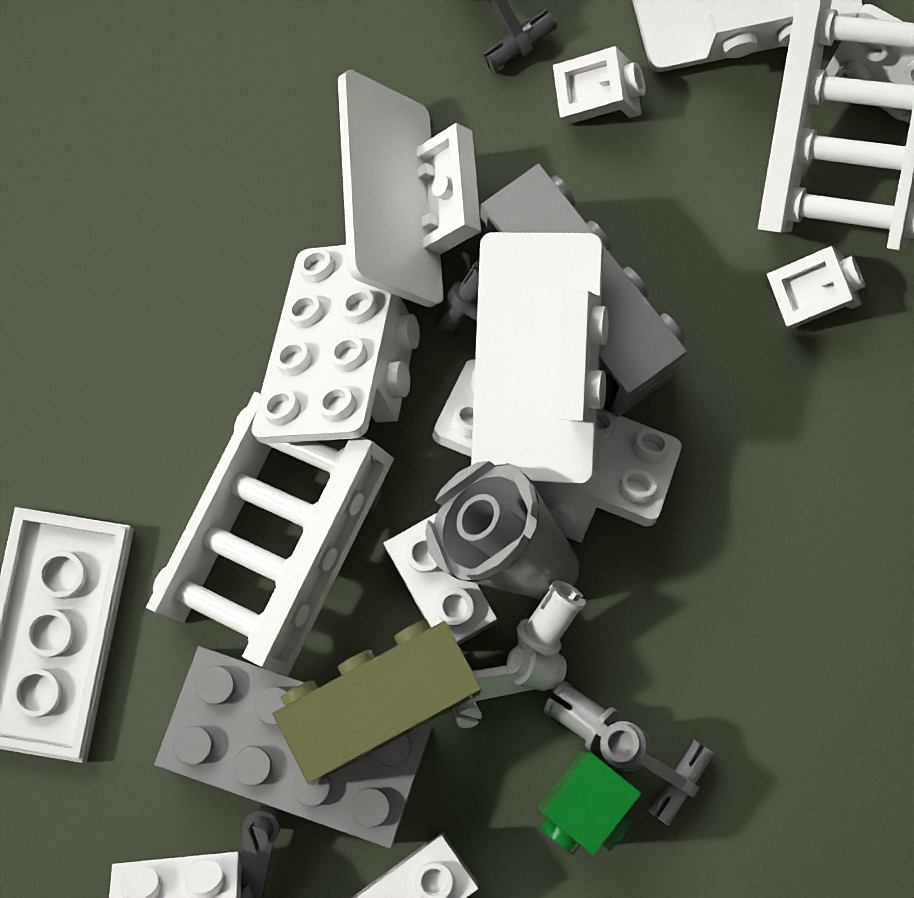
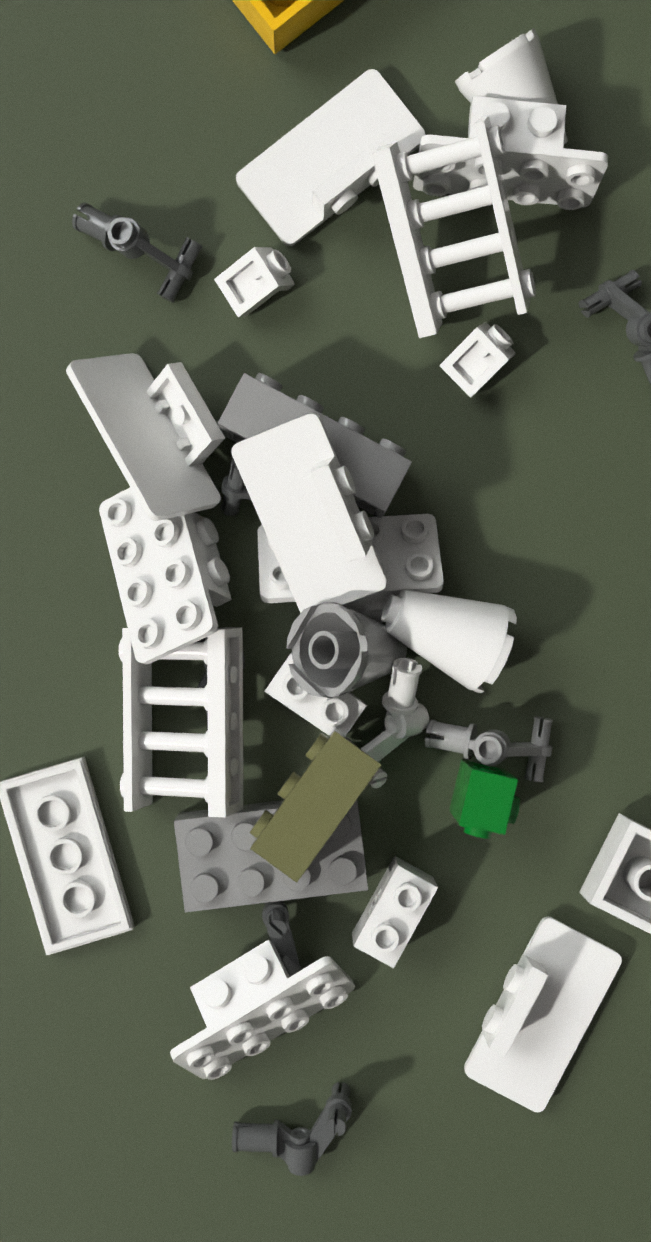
camera: 20 degrees left, 10 degrees up
(641, 582) = (453, 634): none -> white cone

